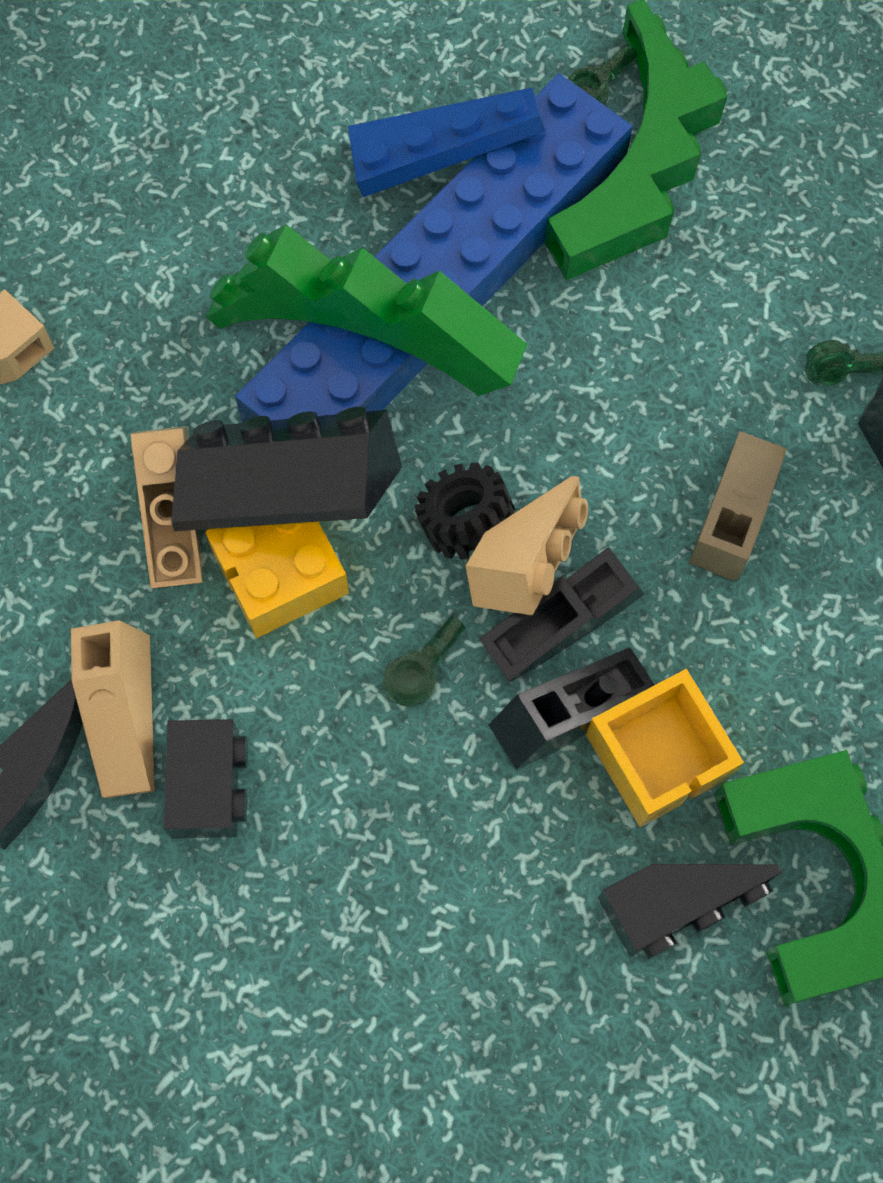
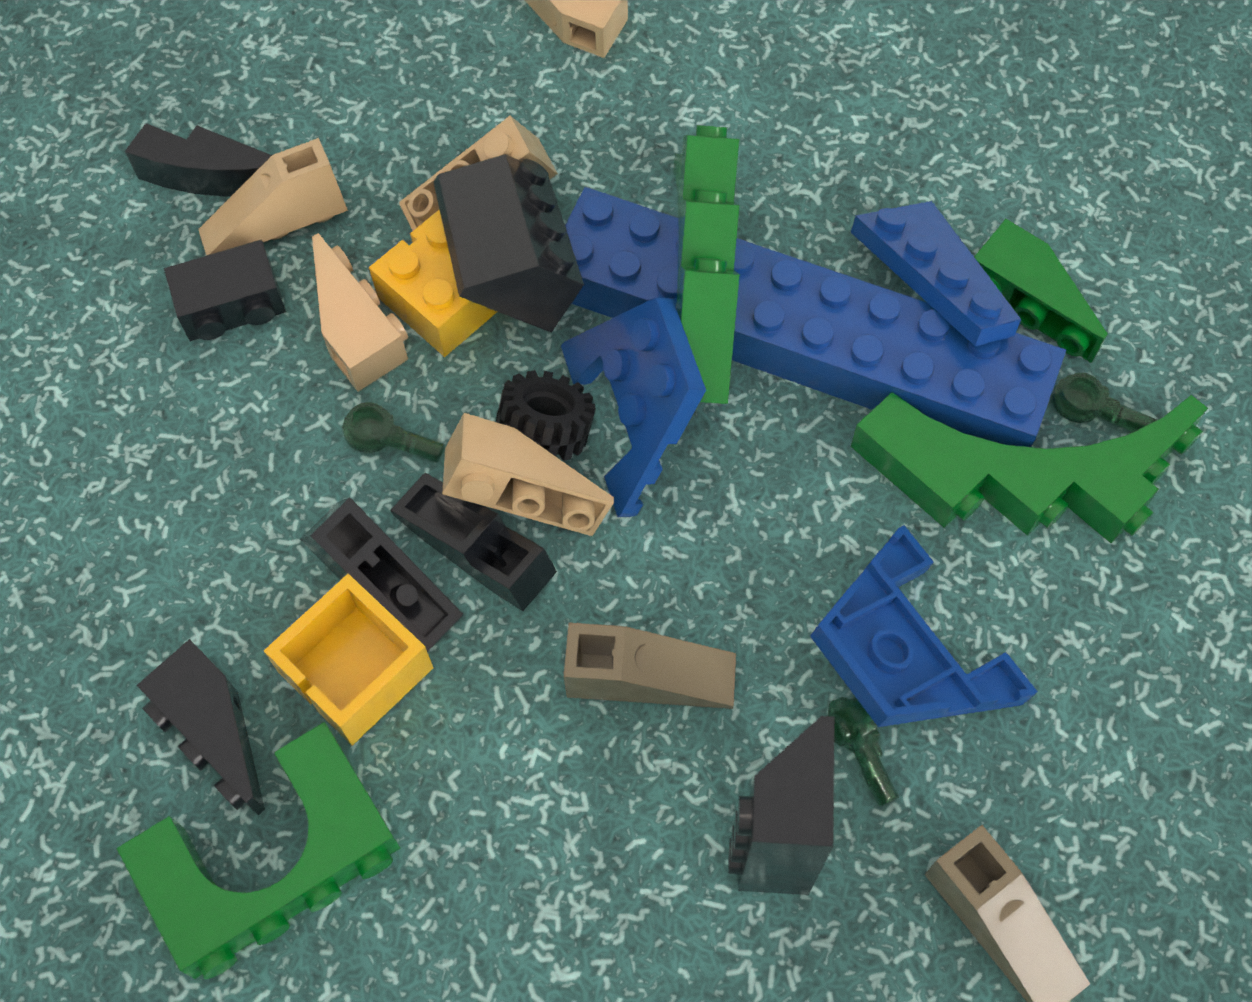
camera: 75 degrees right, 5 degrees down
(288, 663) = (353, 326): none -> tan slope
(477, 72) = (1041, 290): none -> green slope
(482, 396) = (653, 385): none -> blue wing
(777, 308) = (896, 659): none -> blue wing

